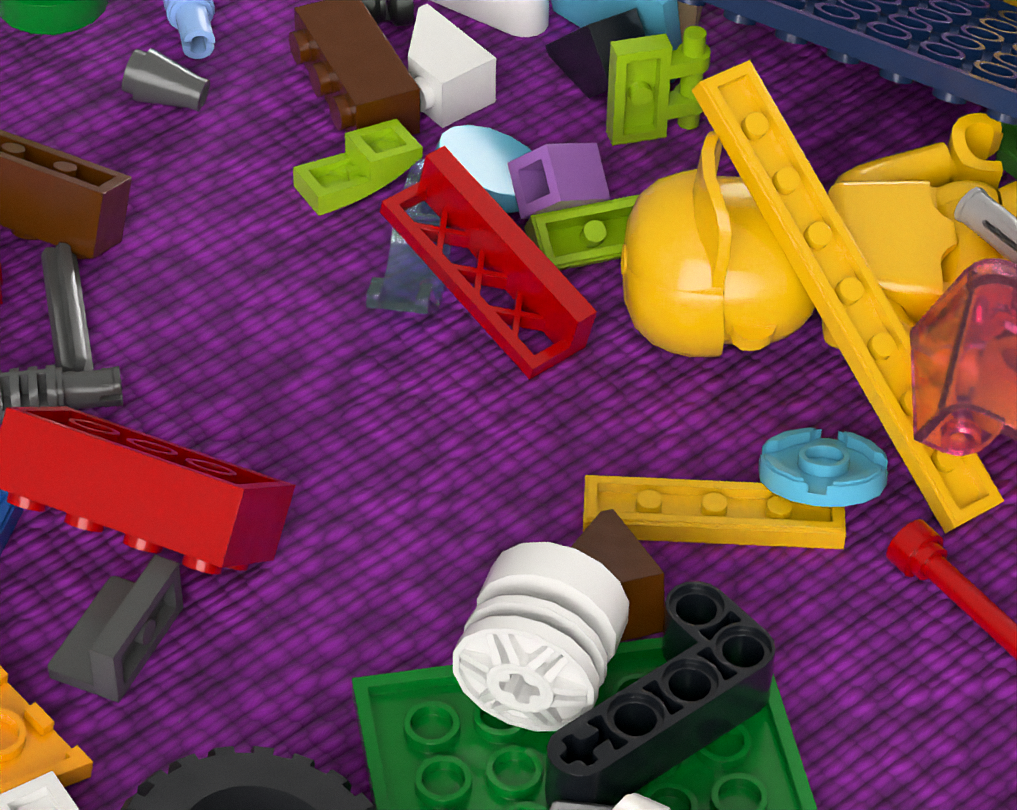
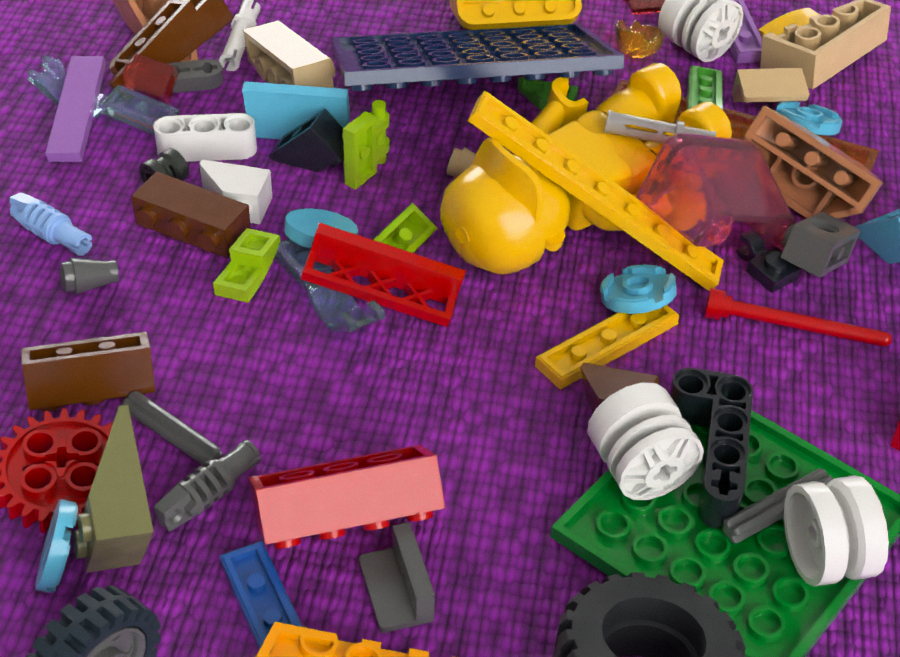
camera: 40 degrees left, 0 degrees up
(558, 178) = (371, 215): medium lavender brick -> none

